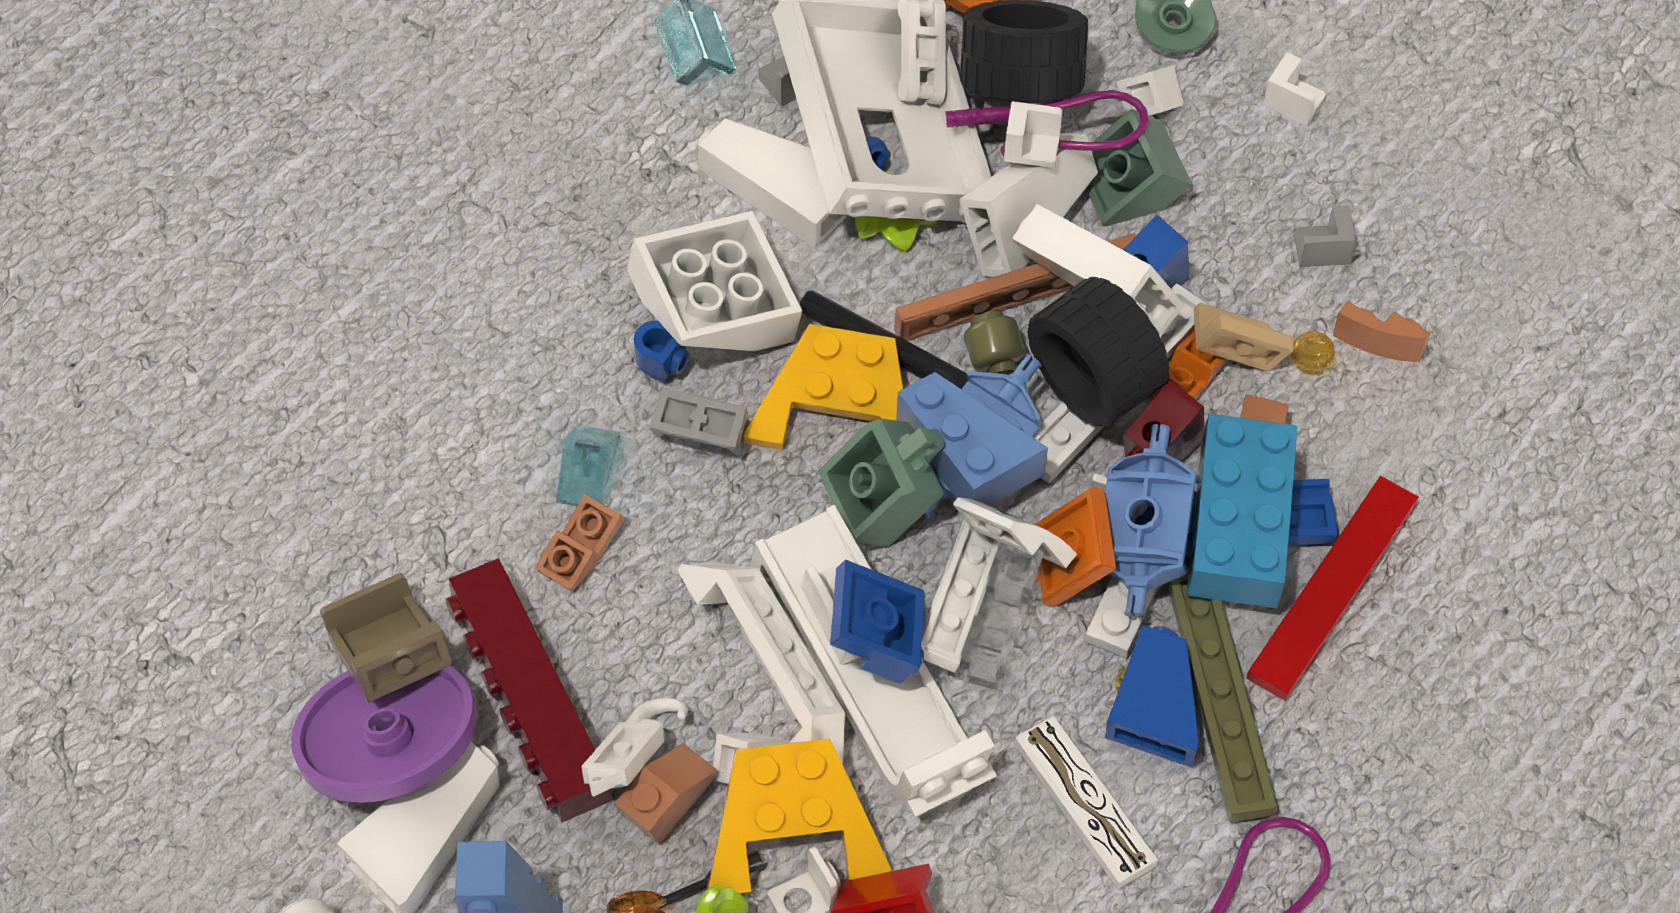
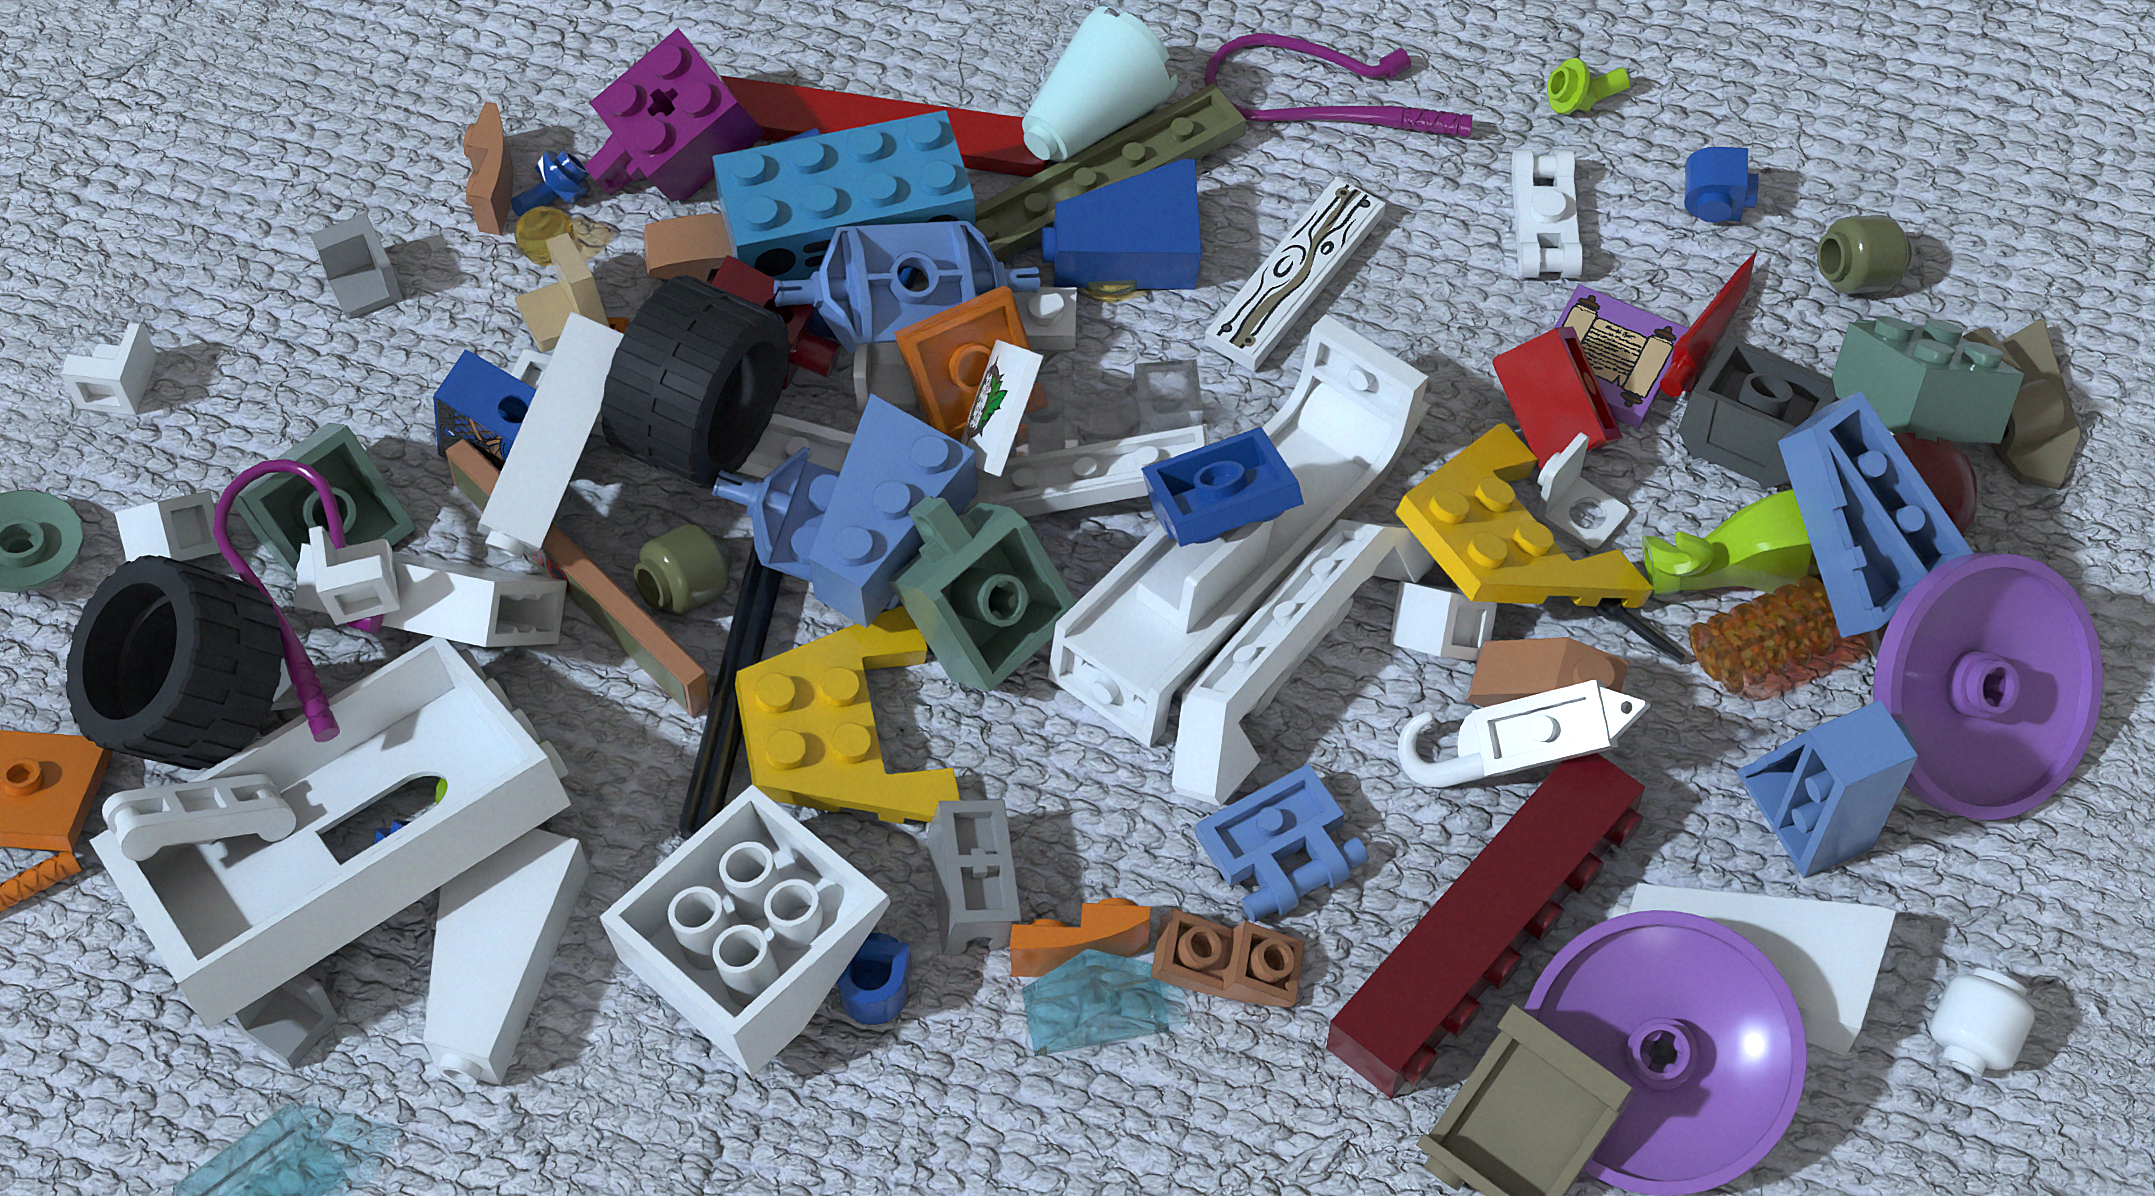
camera: 110 degrees left, 0 degrees up
(628, 463) = (1106, 926): none -> orange slope
(654, 599) = (1272, 825): none -> medium blue plate
(1291, 713) = (1098, 86): none -> light aqua cone
(1362, 376) = (562, 177): none -> blue plate
(1374, 445) = (669, 122): none -> magenta hinge

